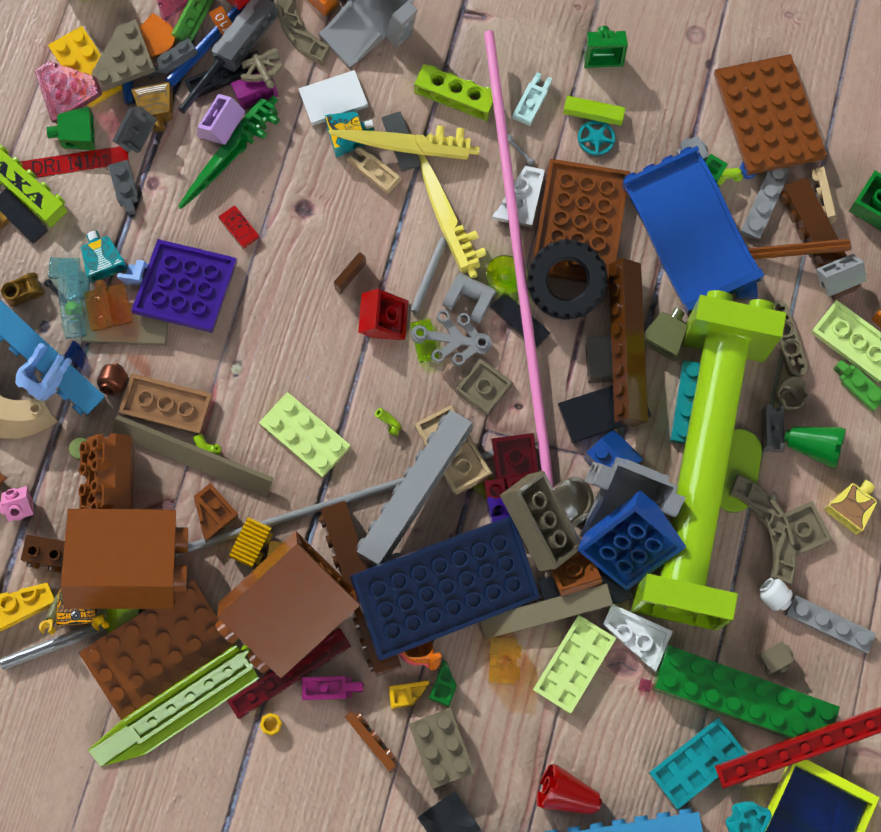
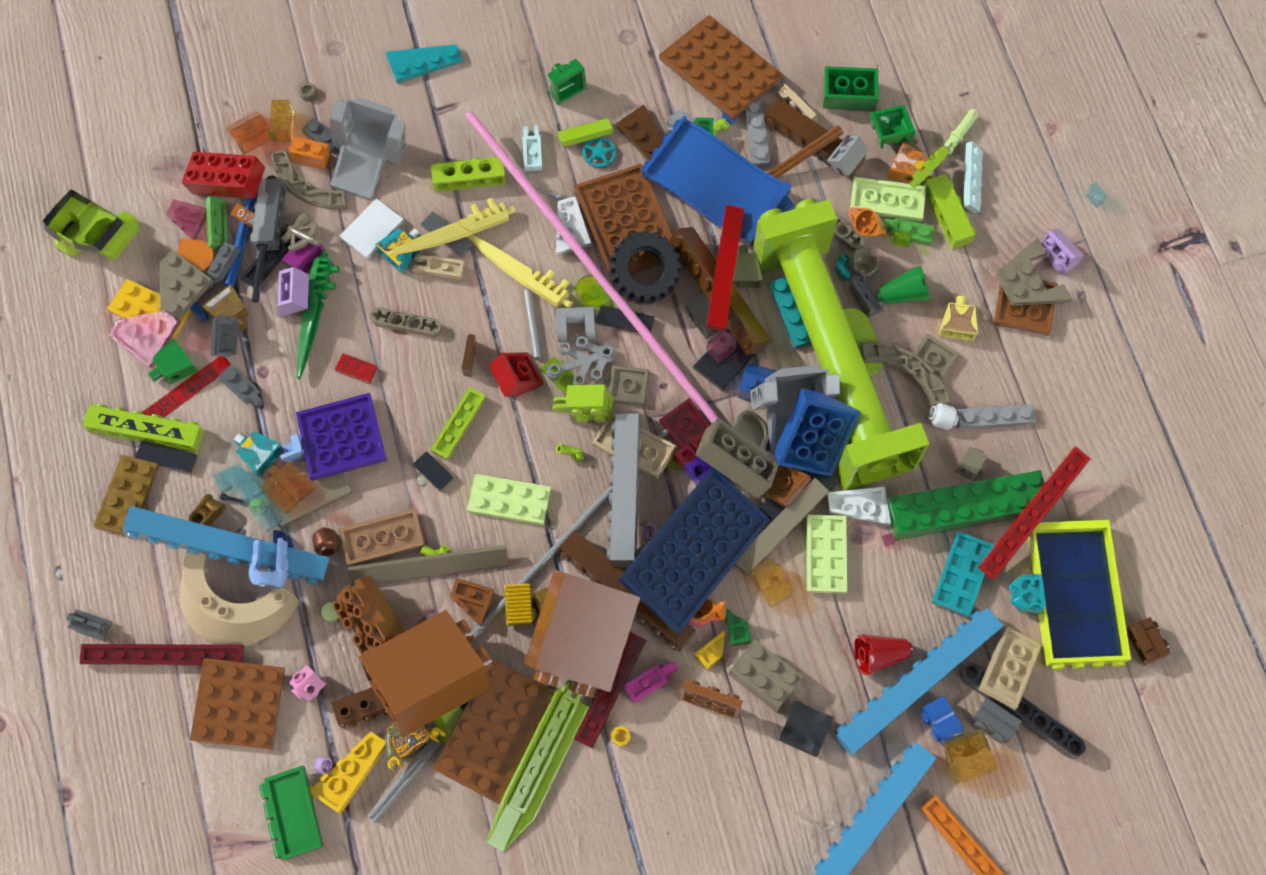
camera: 30 degrees left, 5 degrees down
(250, 366) = (433, 471): none -> black tile
(300, 334) = (458, 423): none -> lime plate
(313, 205) = (407, 318): none -> dark tan beam
(414, 541) = (646, 531): none -> lavender hinge
(430, 383) = (586, 403): none -> lime brick
(596, 398) = (721, 345): none -> clear pink brick
(644, 323) = (725, 268): none -> red tile
(650, 138) = (641, 131): none -> reddish brown wing
(767, 384) = (841, 265): none -> teal arm
(819, 354) = (867, 222): none -> orange hat
(846, 390) = (902, 239): none -> clear neon green tile

